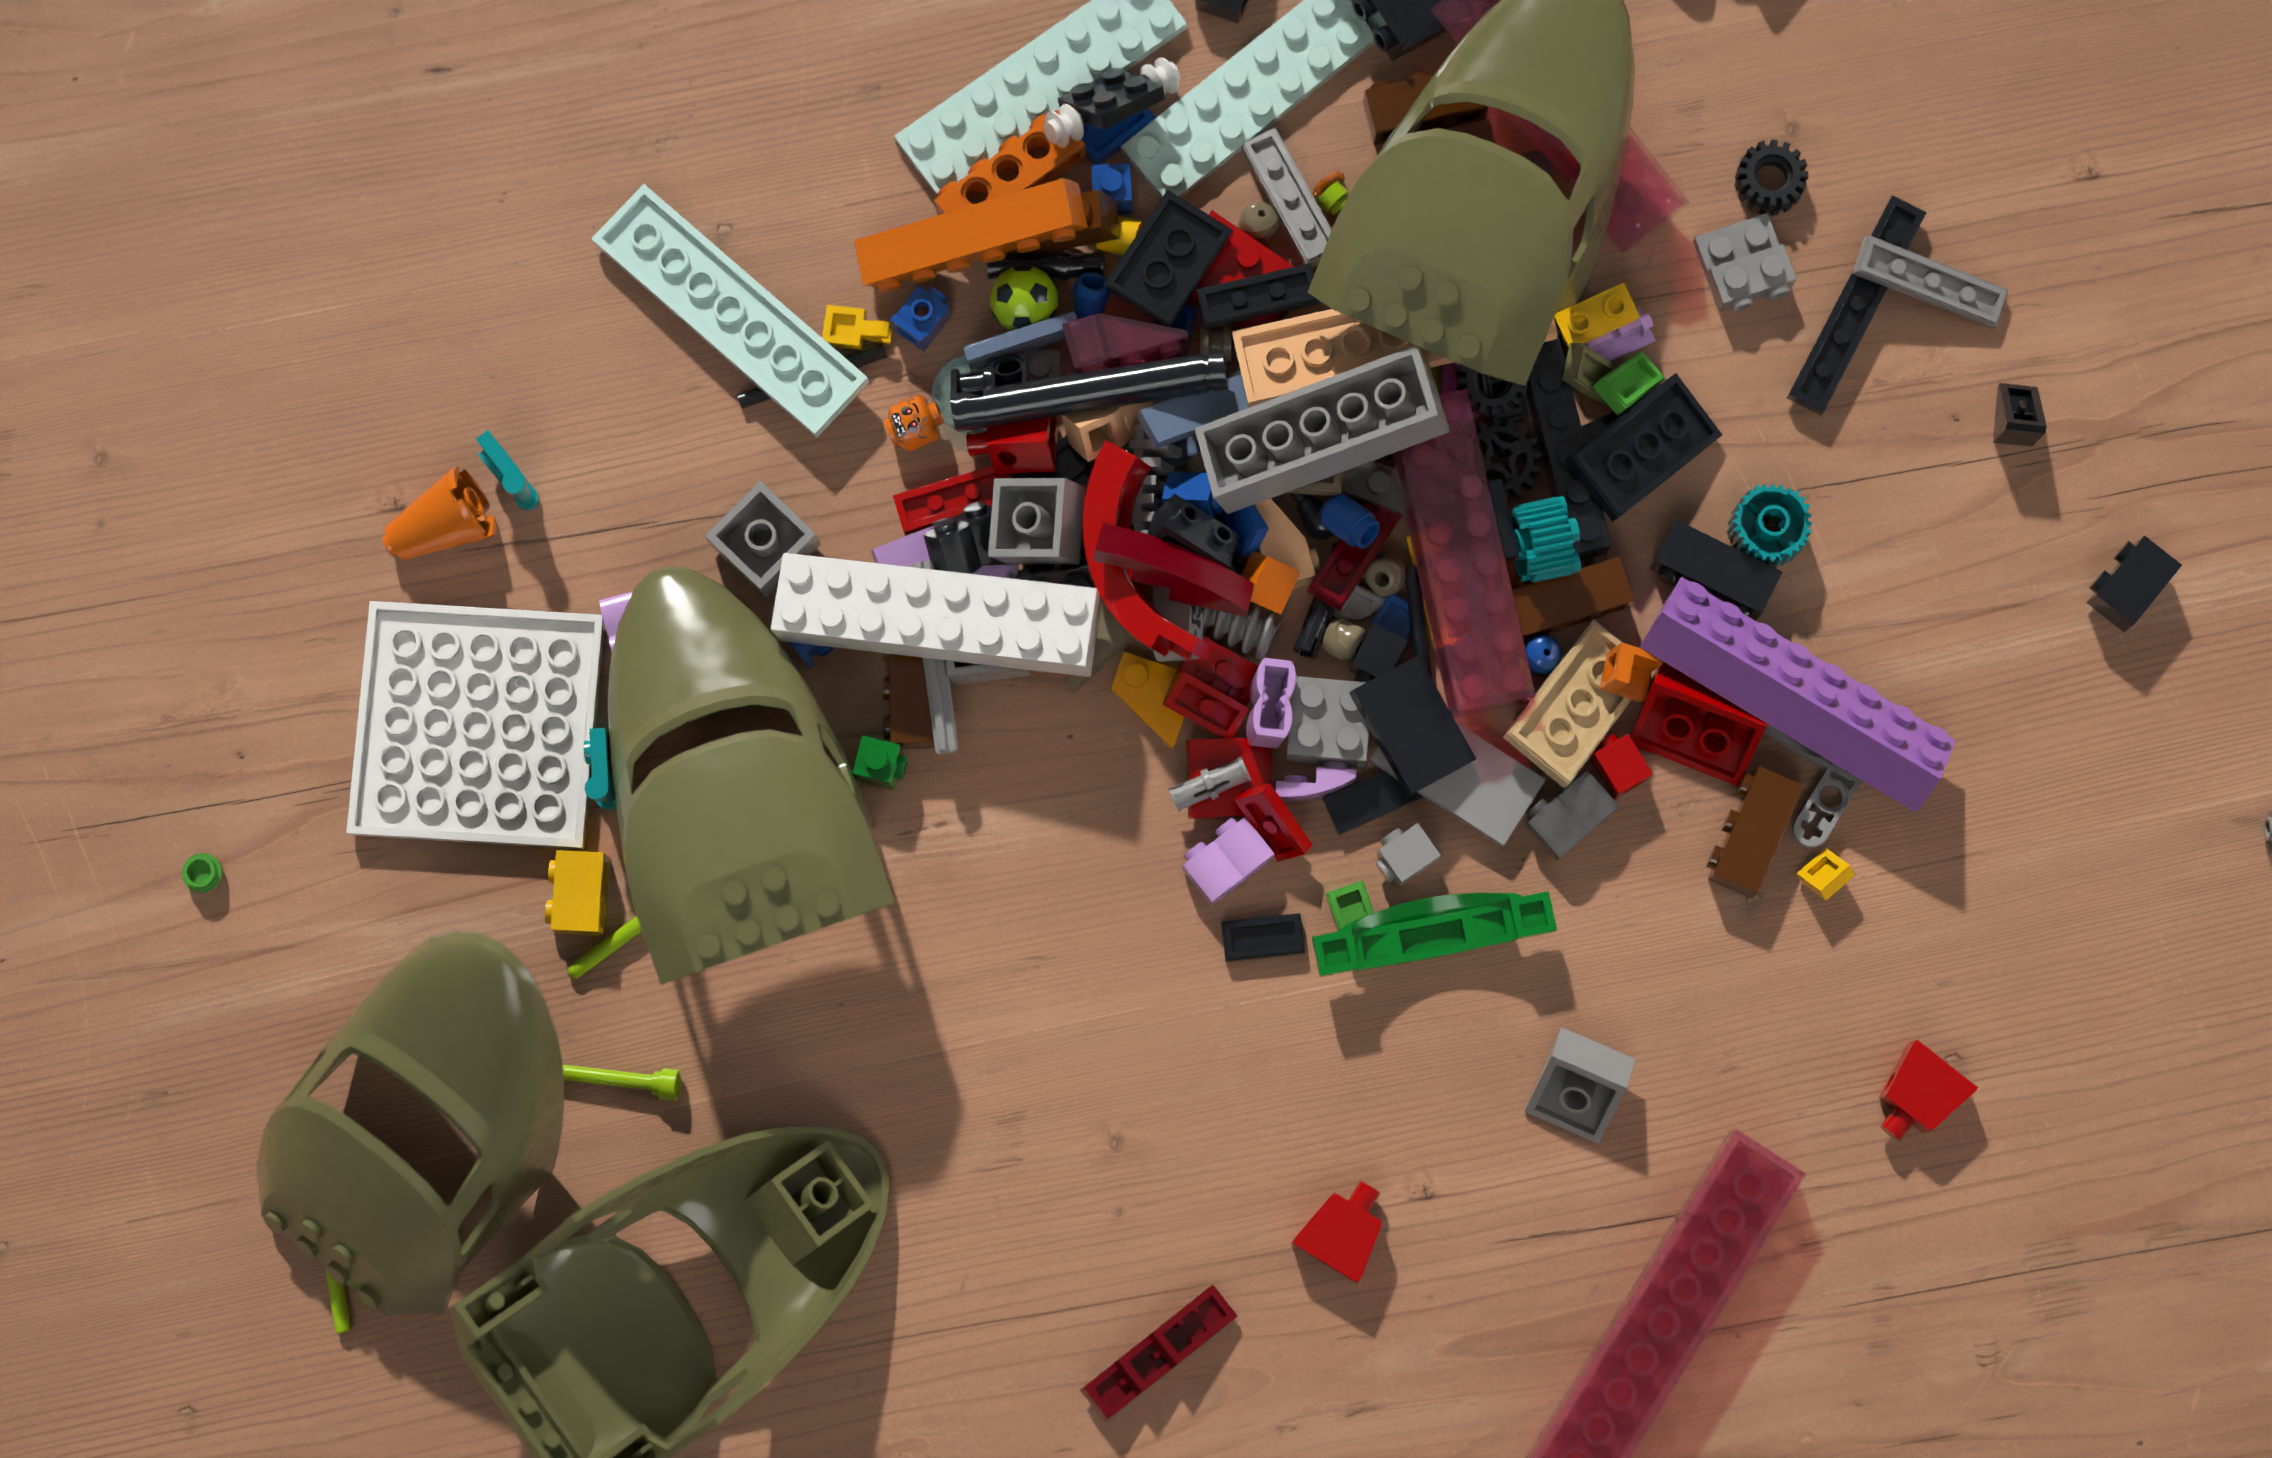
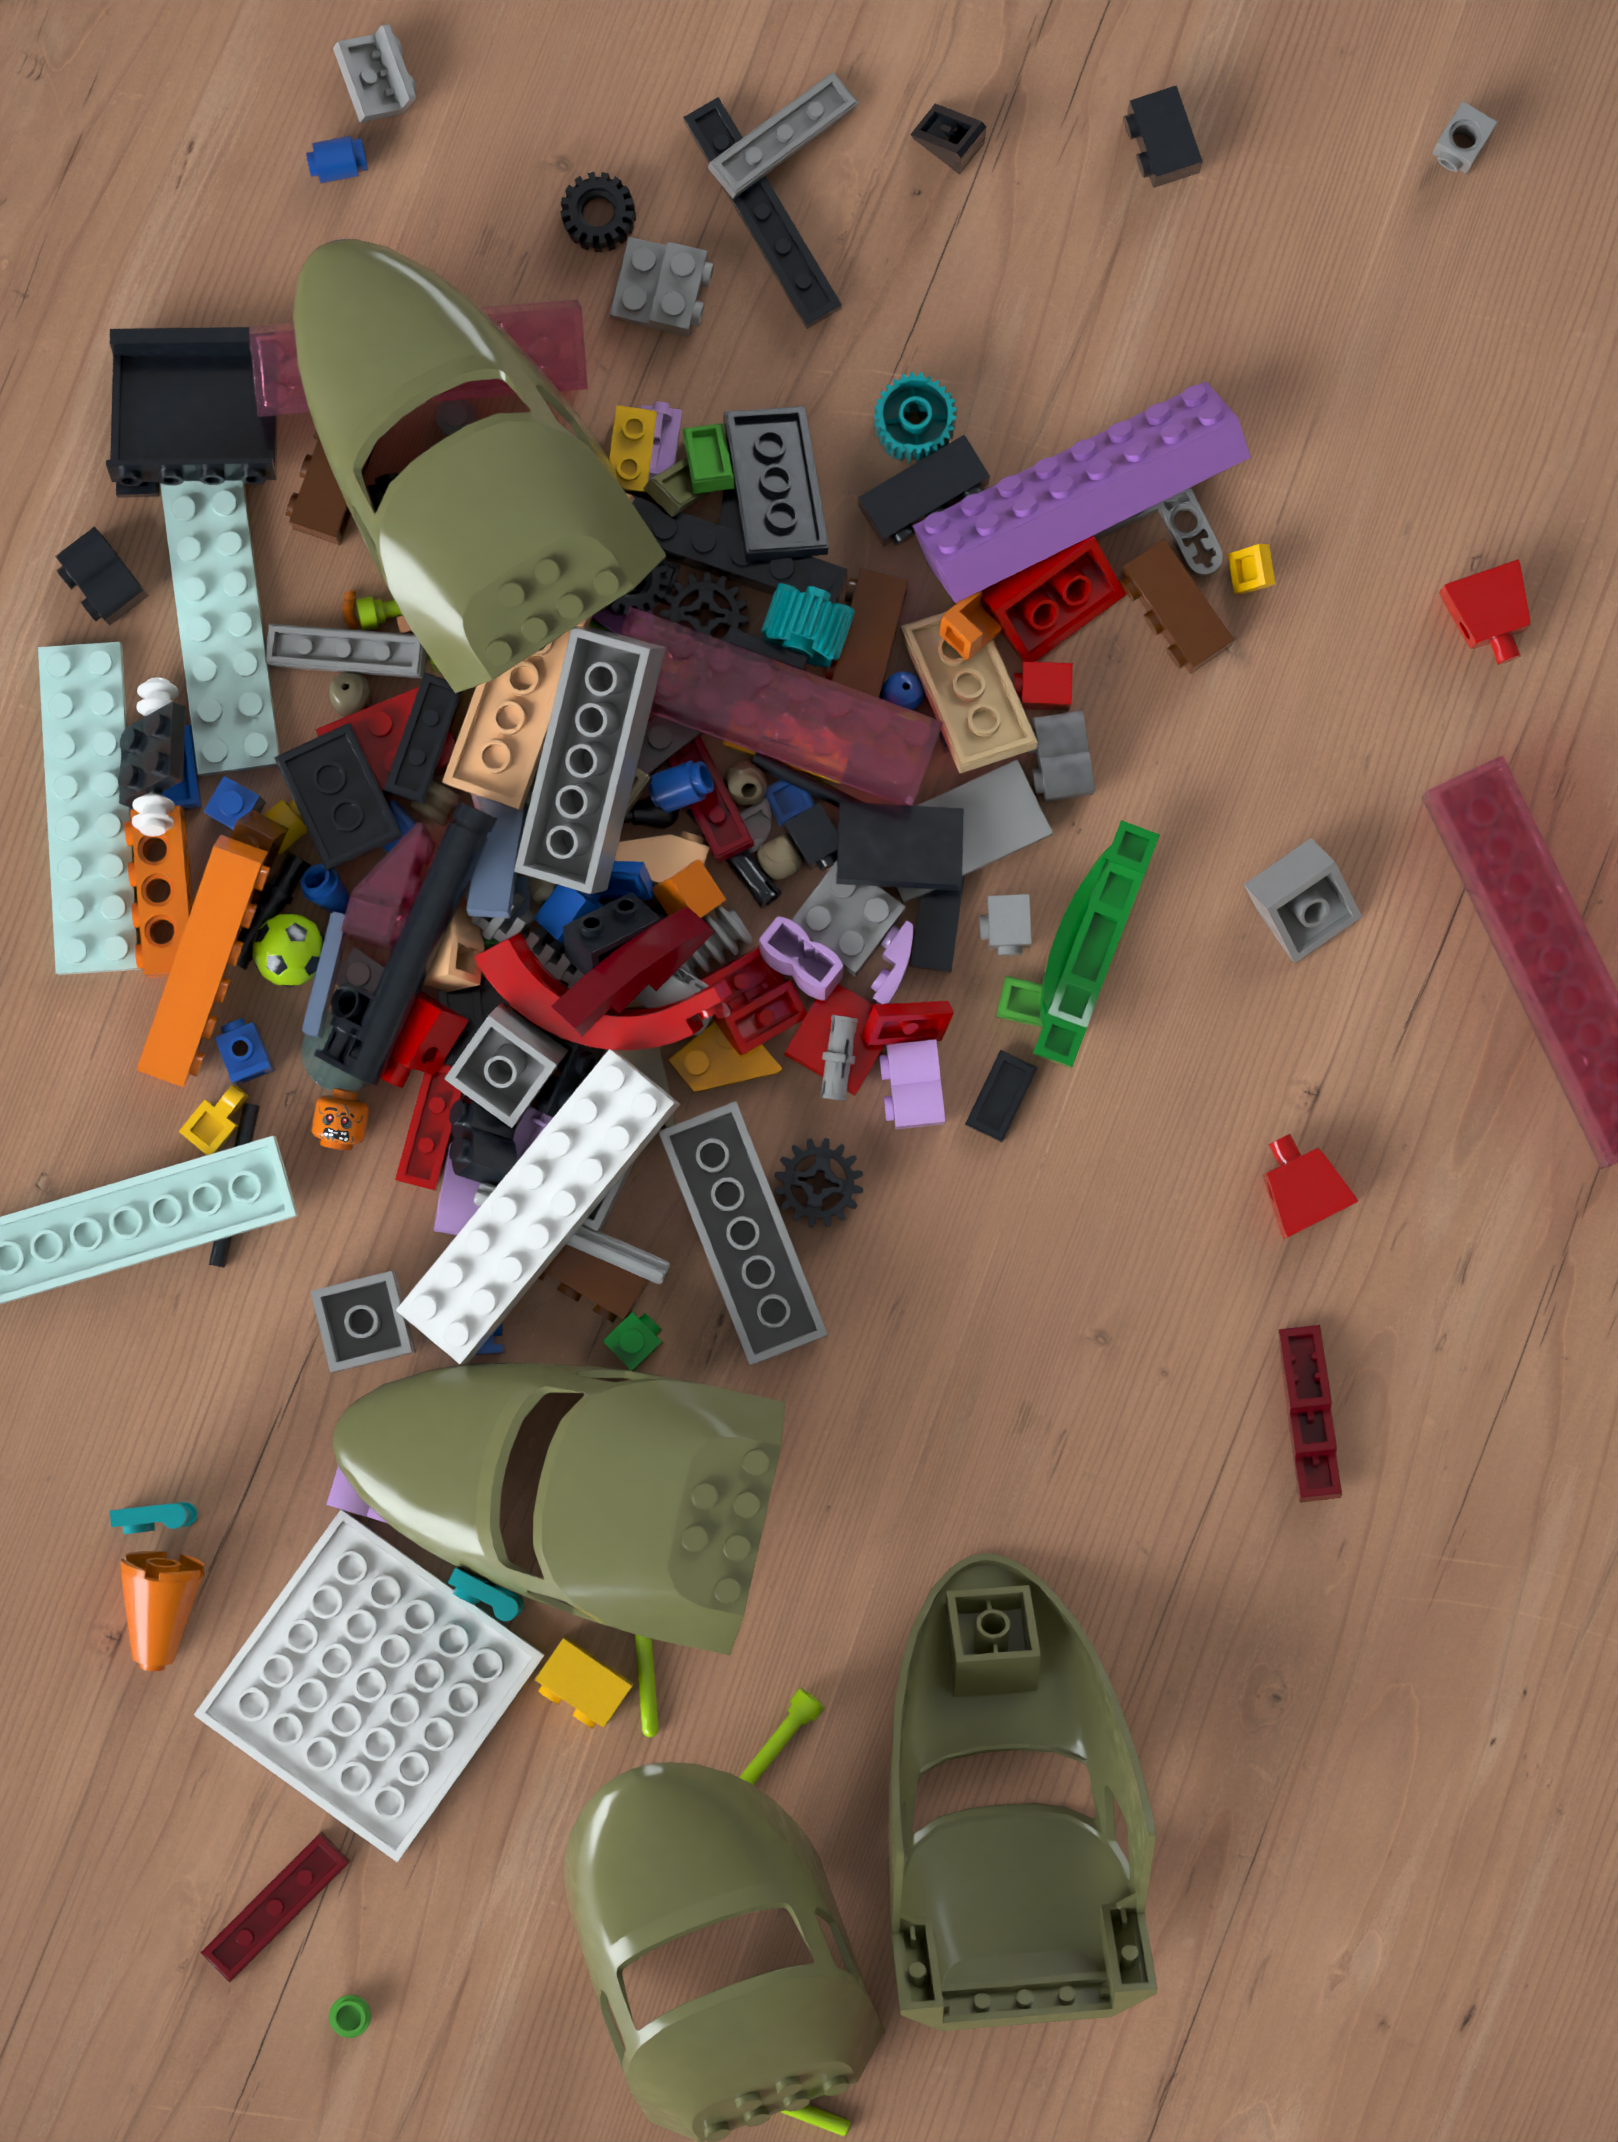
camera: 60 degrees left, 5 degrees up
(255, 760) = (275, 1907): none -> dark red tile
(1019, 796) = (743, 1233): none -> light grey brick
(1081, 838) = (815, 1201): none -> black gear

